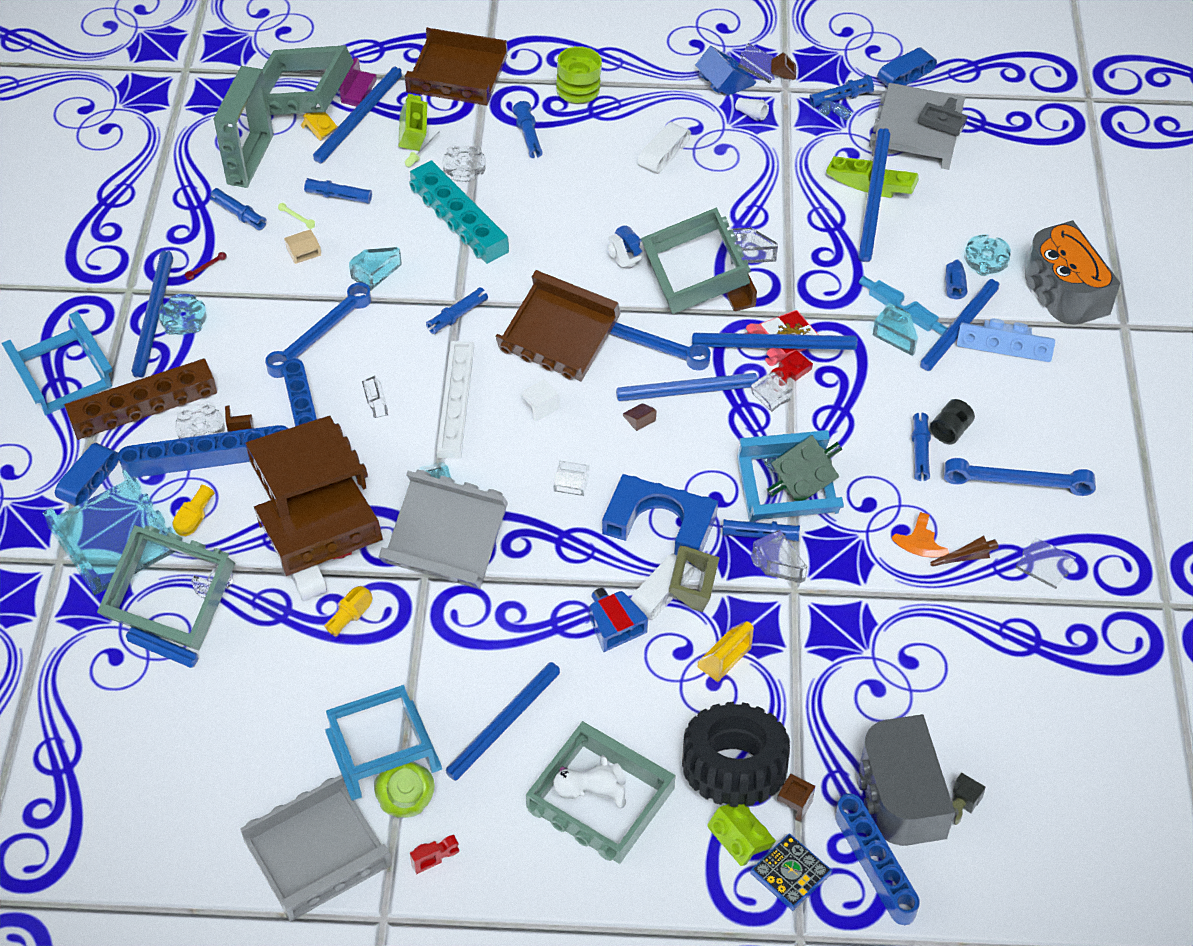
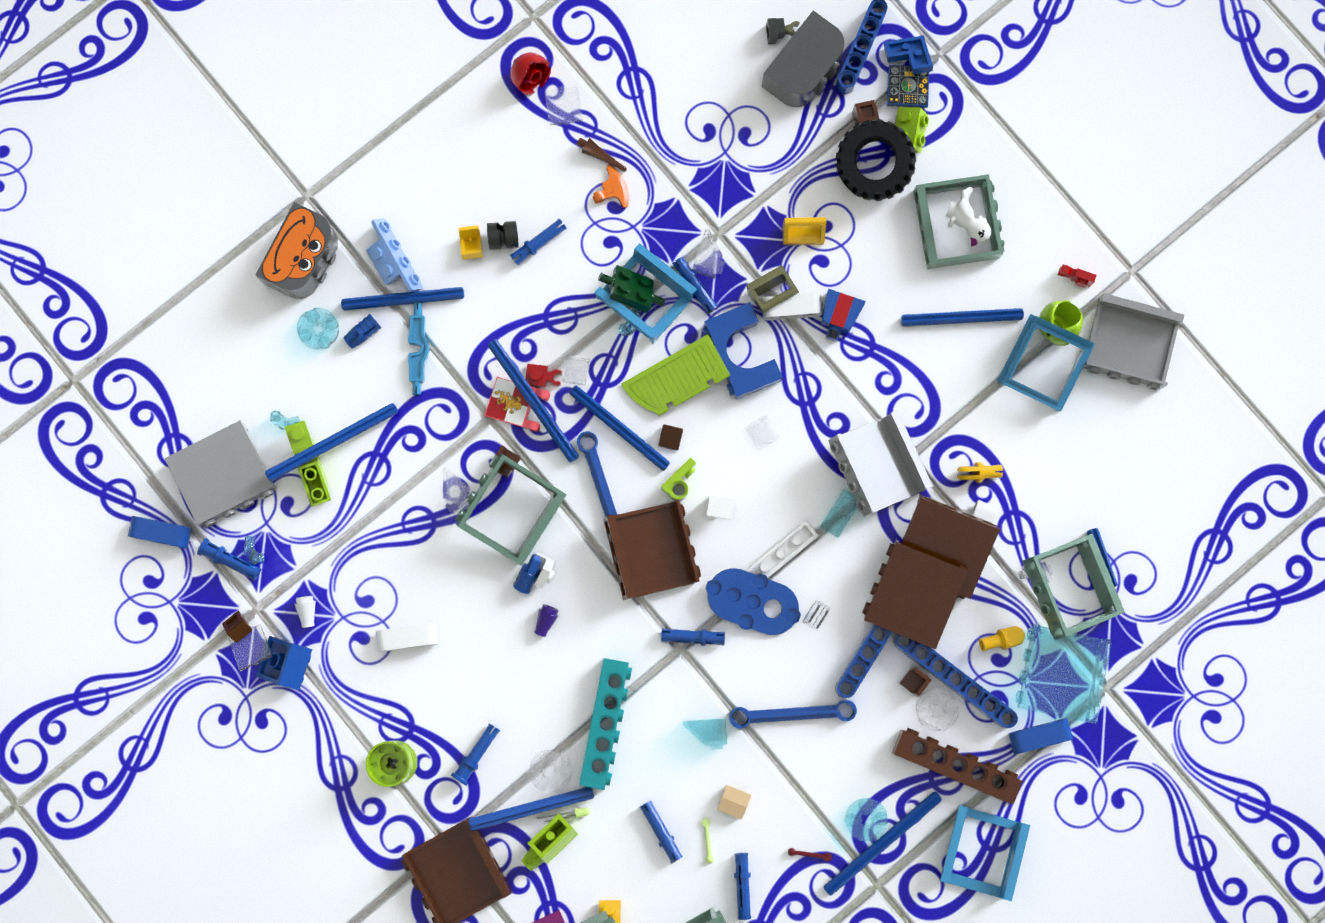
camera: 135 degrees left, 30 degrees up
(357, 115) = (571, 899): blue axle -> none
(444, 364) = (741, 600): none -> blue piece
(453, 121) = (531, 808): none -> blue axle
(582, 234) = (546, 617): none -> dark purple cone
(591, 386) = (676, 479): none -> lime plate
(687, 452) = (677, 377): none -> lime piece
(826, 903) = (910, 48): none -> blue plate
(896, 329) = (446, 333): clear light blue slope -> none
(925, 187) = (281, 421): none -> clear light blue arm
(944, 117) = (209, 450): dark grey hinge -> none
(959, 471) = (536, 197): blue piece -> none
(966, 393) = (470, 242): none -> yellow bracket
(1104, 547) = (529, 72): none -> red cylinder

